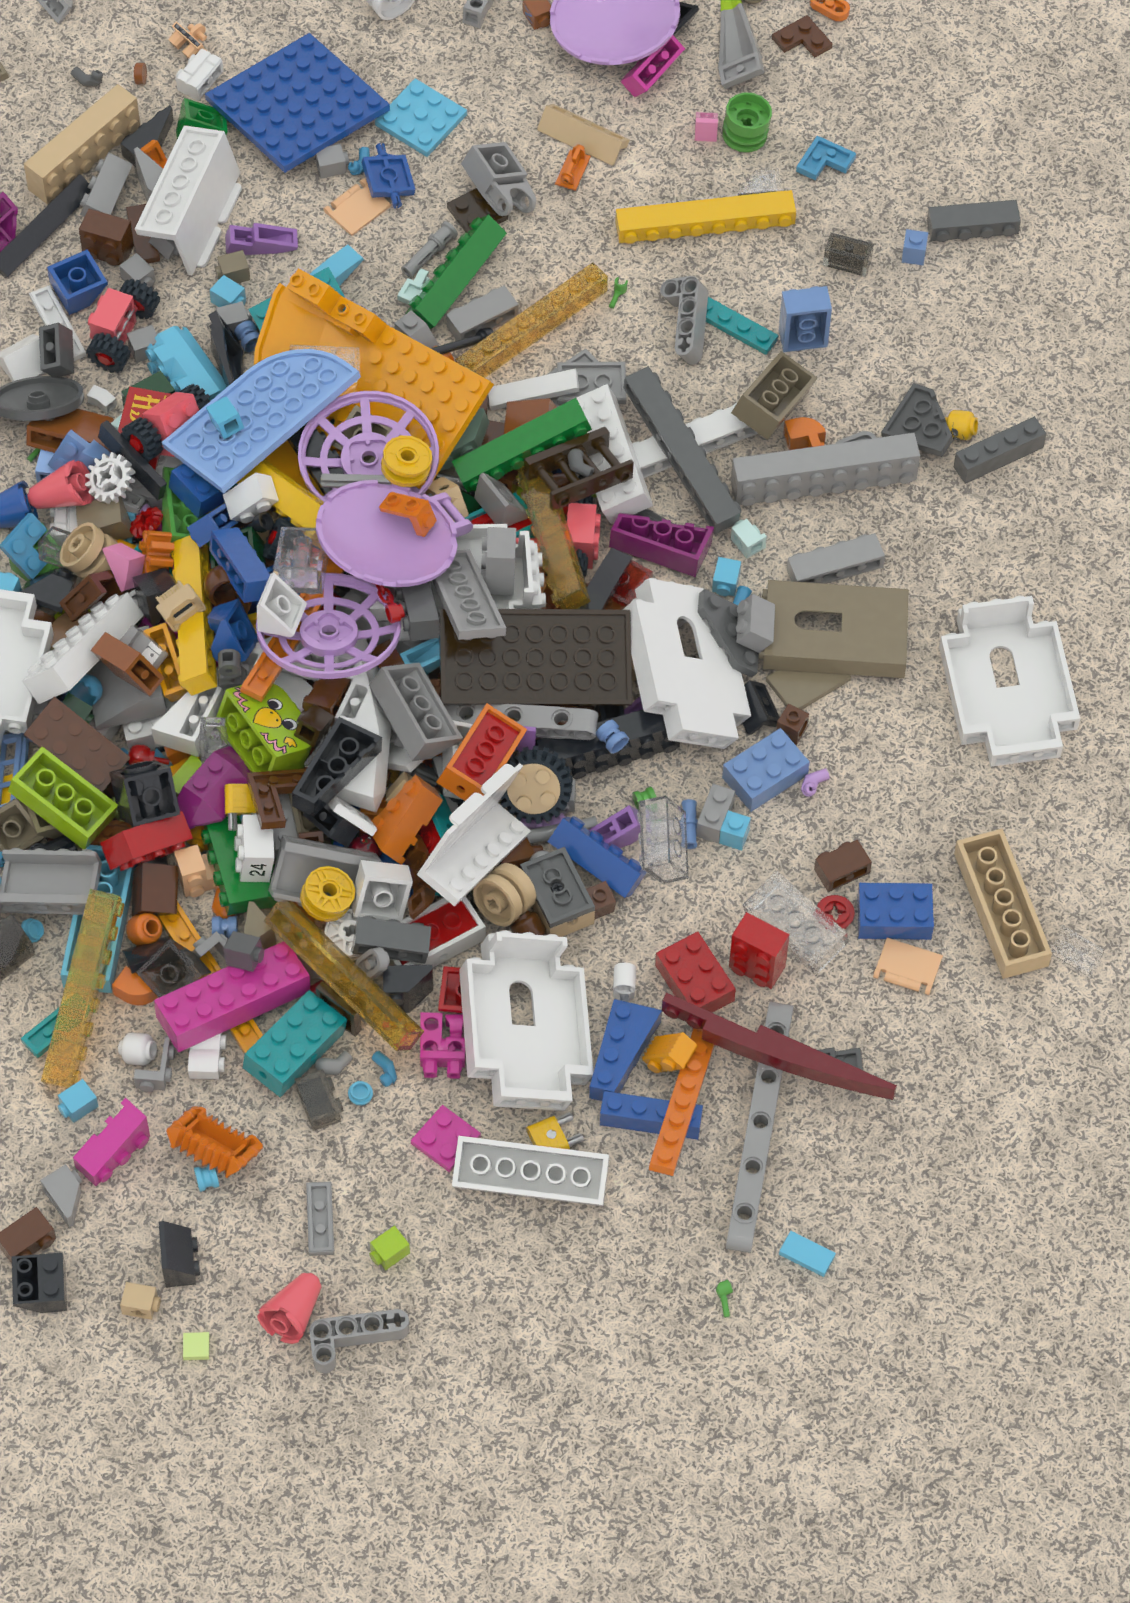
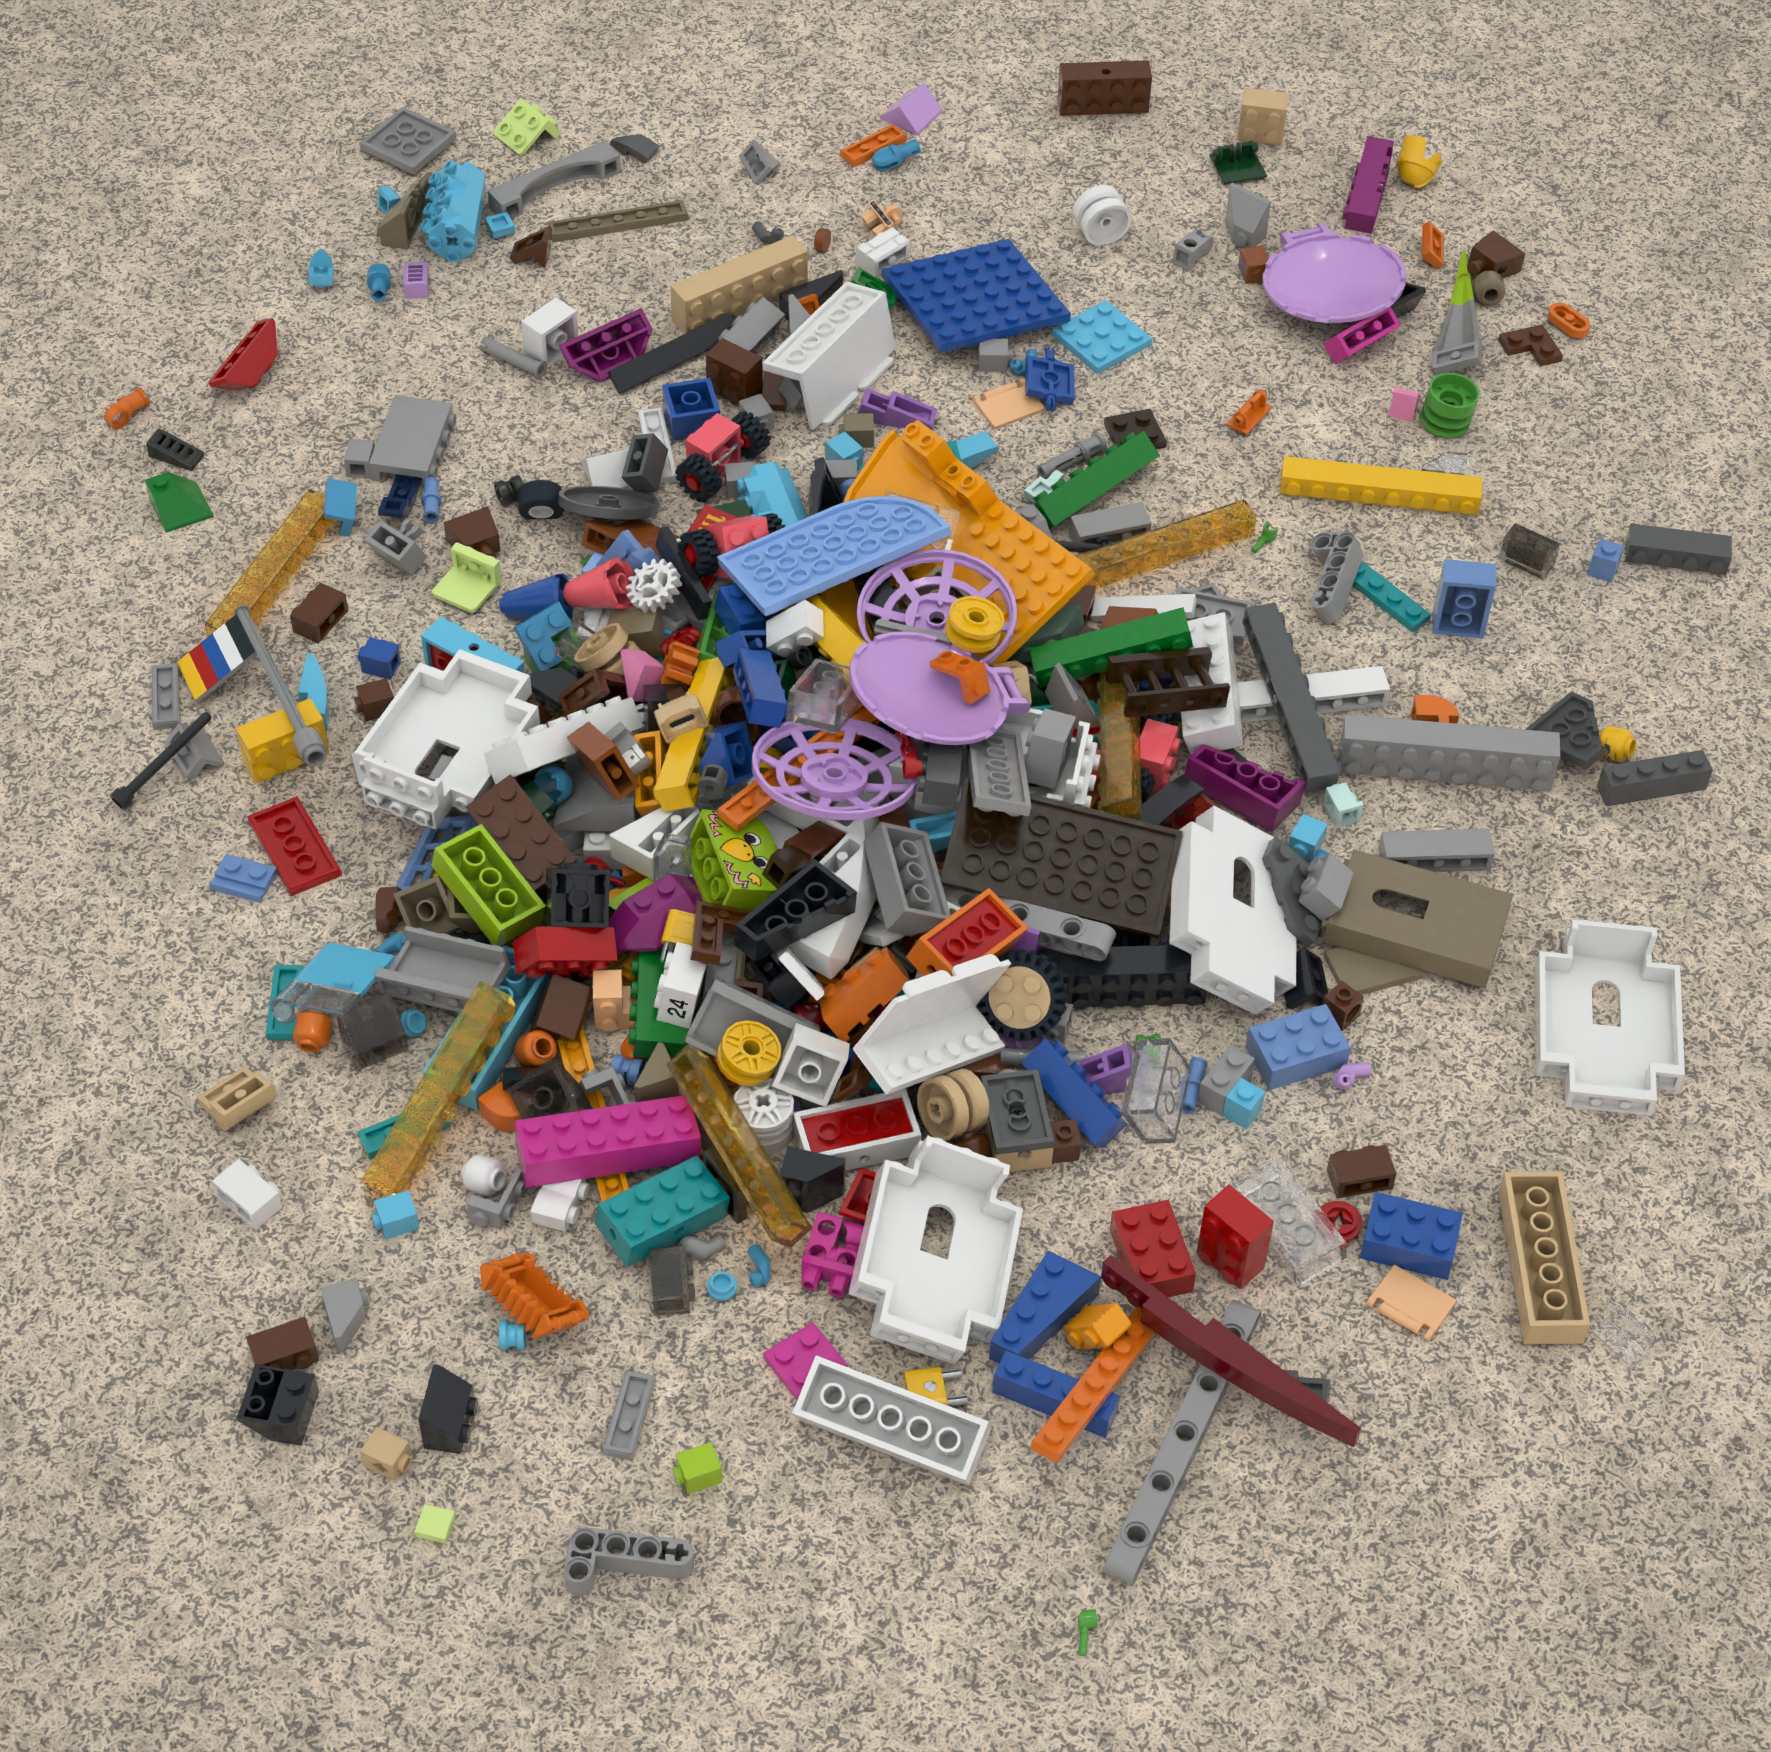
camera: 15 degrees right, 10 degrees down
(102, 399) = (677, 521): white piece -> none
(113, 1145) = (418, 1271): dark pink wedge -> none
(225, 417) = (790, 542): medium azure brick -> none
(243, 951) = (632, 1091): dark grey brick -> none
(279, 608) = (783, 733): white slope -> none
(291, 1308) = (558, 1507): coral cone -> none
(373, 962) = (777, 1138): light grey plate -> none
(398, 939) = (806, 1120): dark grey brick -> none
(499, 177) = (1166, 401): light grey brick -> none
(577, 130) = (1257, 376): tan panel -> none
(577, 465) = (1165, 673): dark grey arm -> none
(612, 736) = (1125, 961): medium blue wheel -> none
(624, 981) = (1066, 1234): white piece -> none
(774, 395) = (1409, 665): dark tan brick -> none
(807, 1253) = (1201, 1604): medium azure tile -> none
(823, 153) = (1527, 453): dark azure plate -> none

